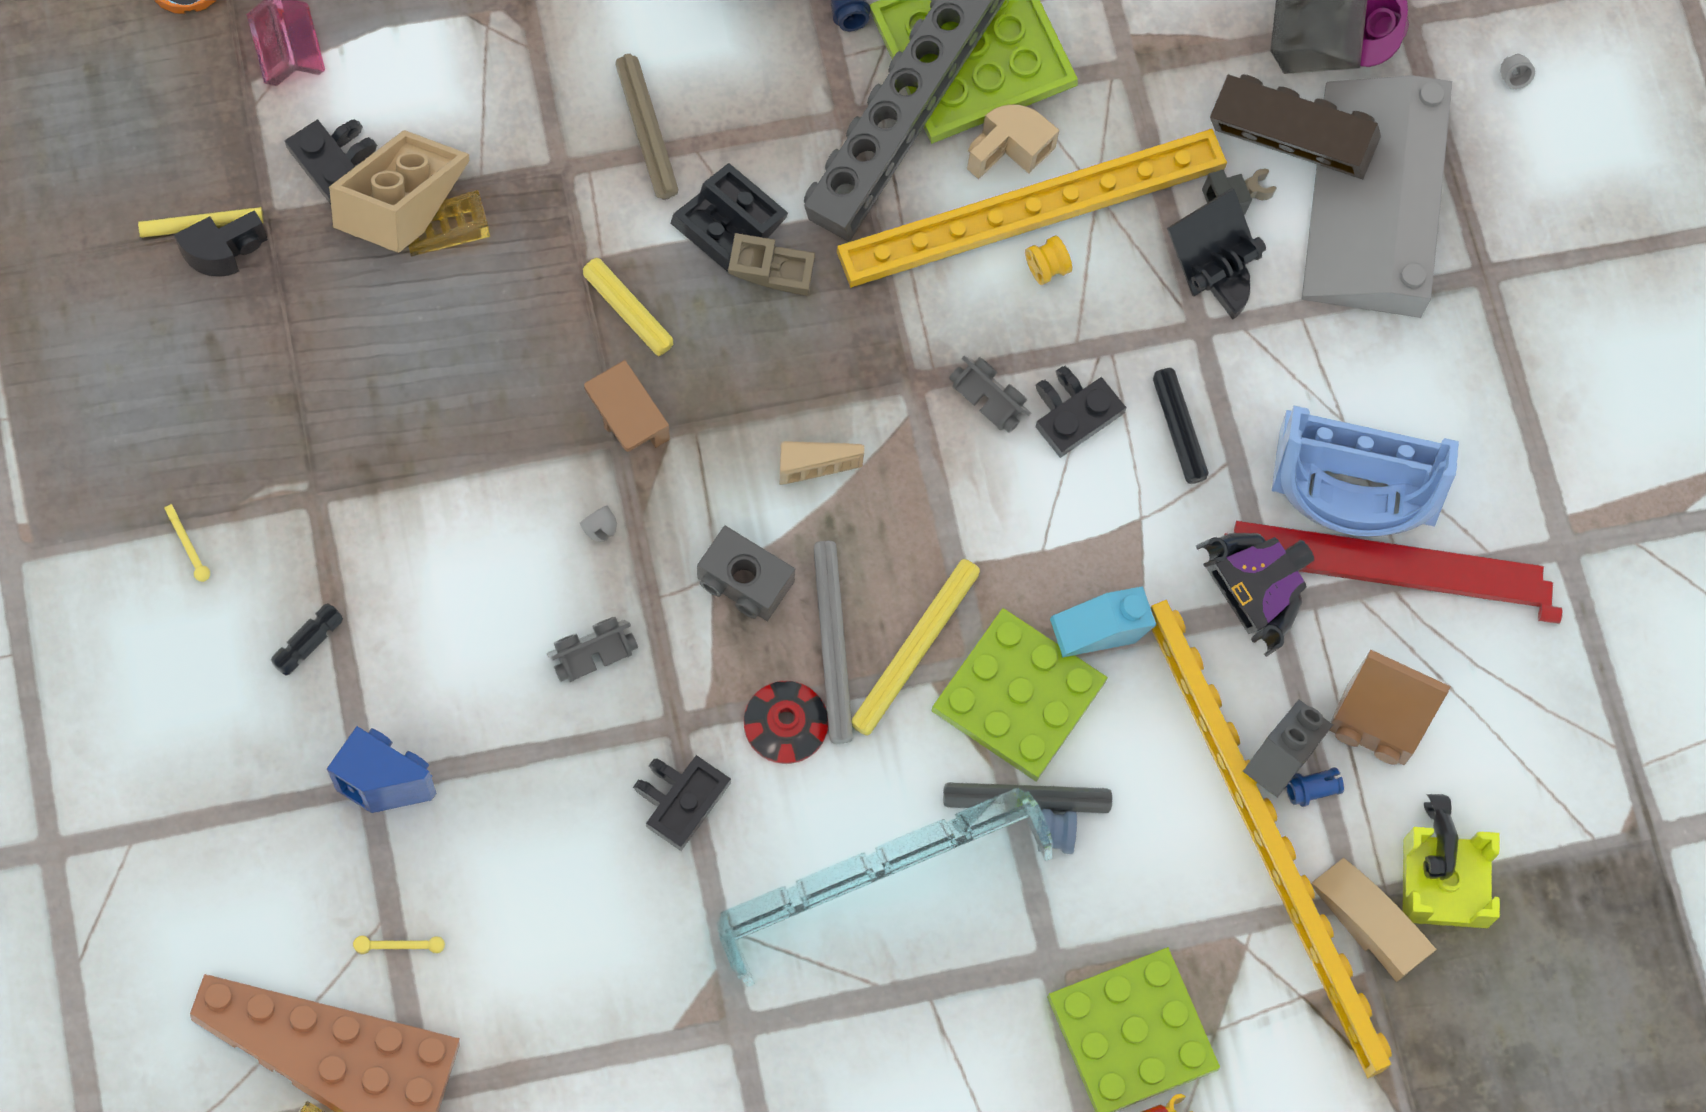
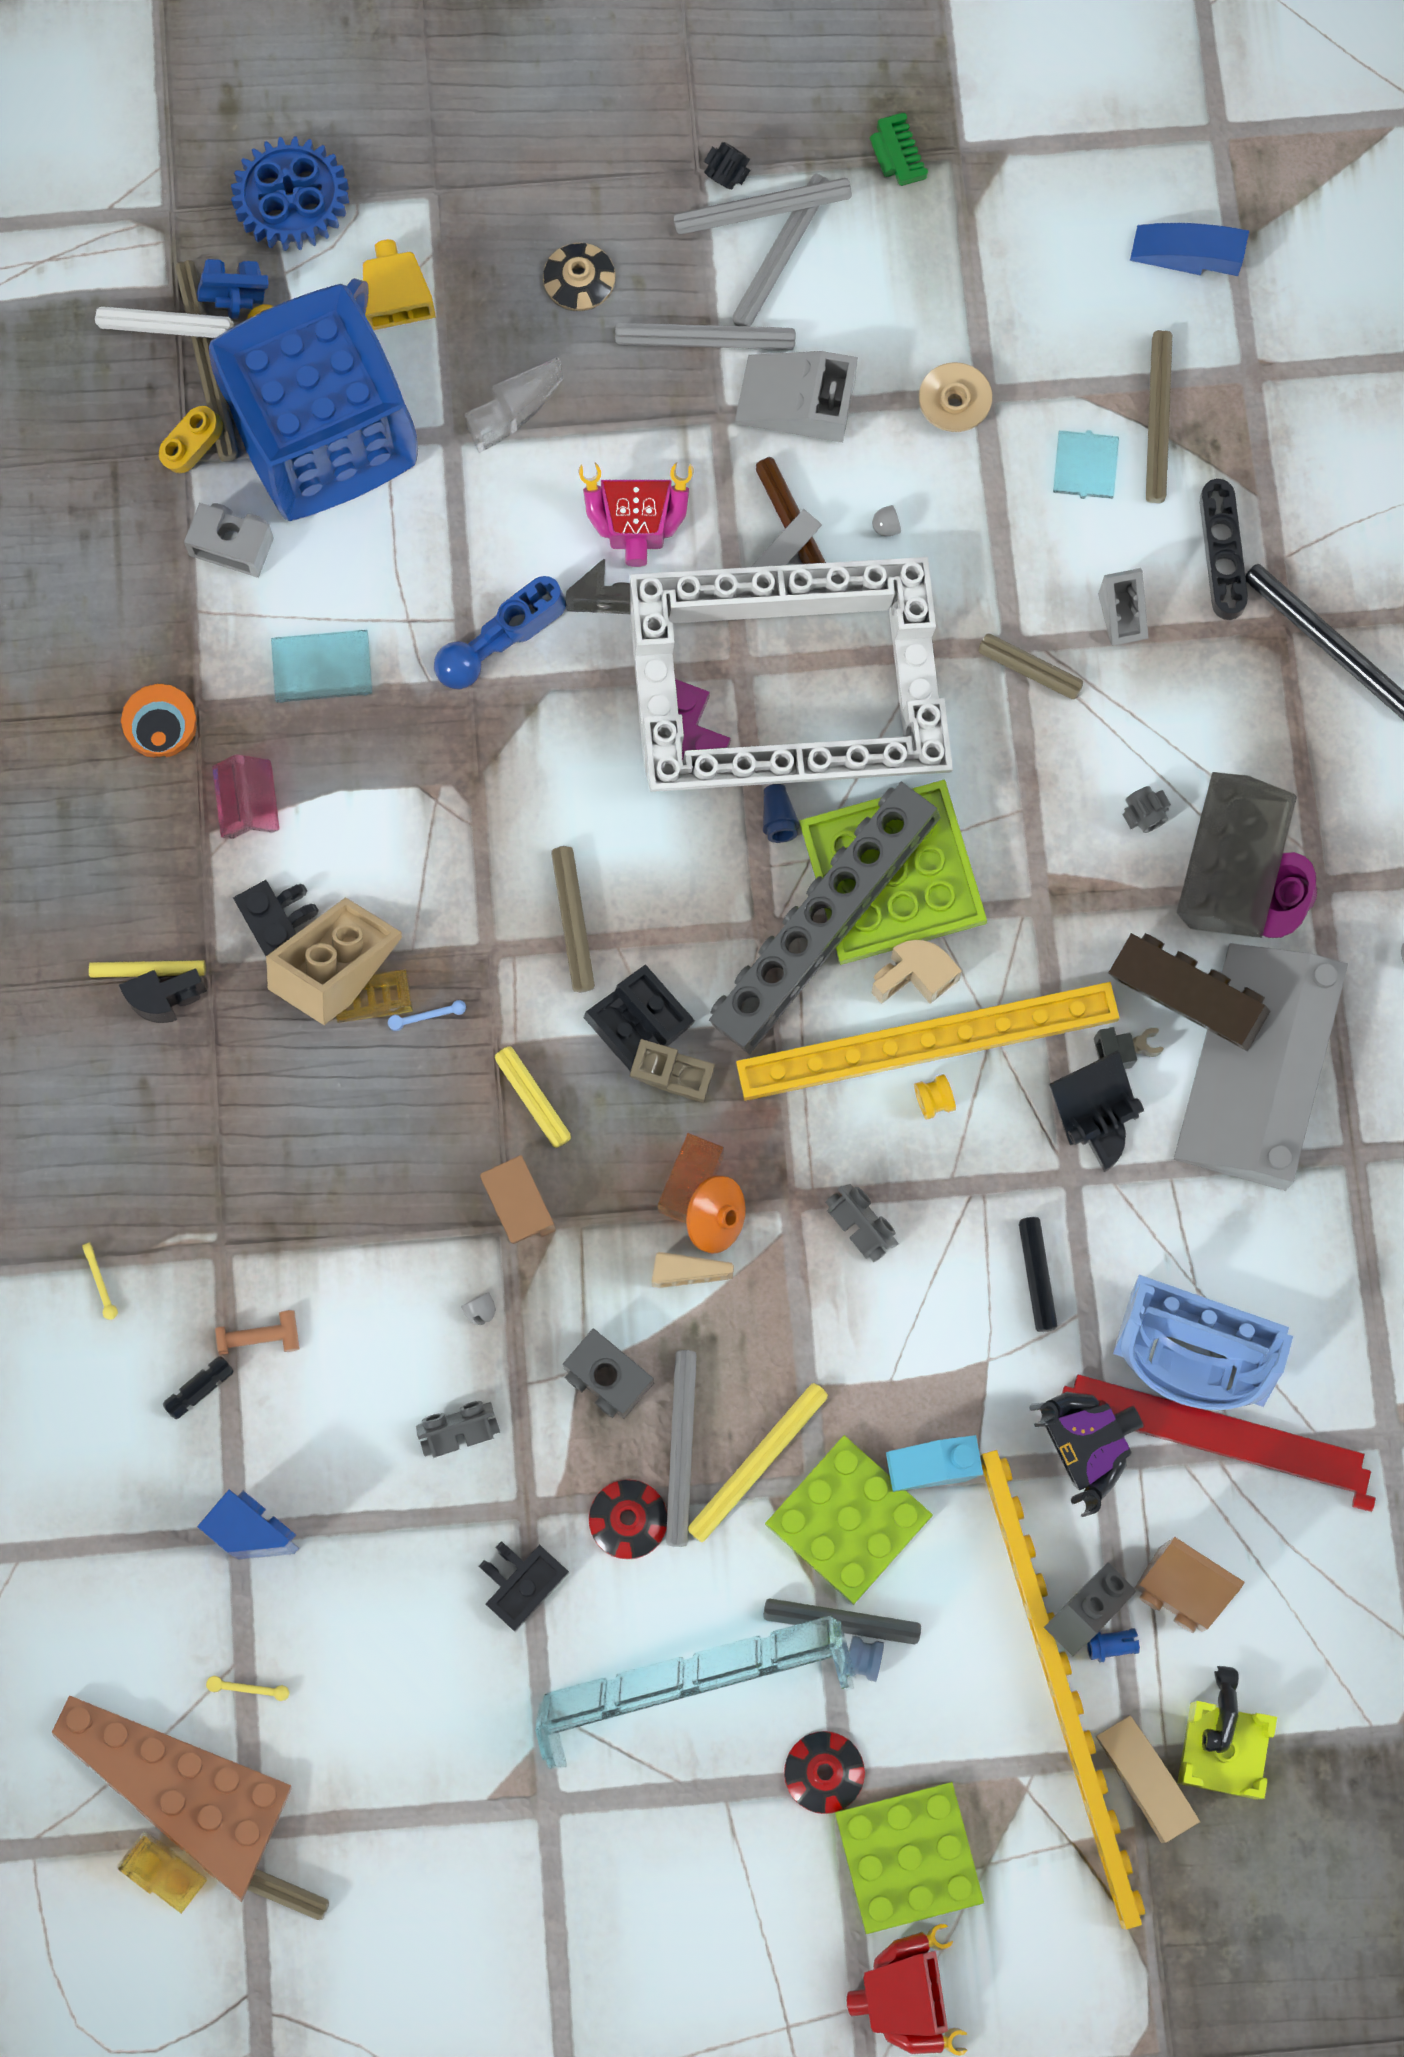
camera: 15 degrees right, 5 degrees up
(394, 571) = (285, 1331): none -> nougat piece
(473, 249) = (396, 1022): none -> light blue hinge
(806, 368) = (694, 1164): none -> clear orange brick
(838, 398) = (715, 1214): none -> orange dish
(1027, 977) = (802, 1776): none -> dish
(1079, 416) = (943, 1253): black hinge -> none

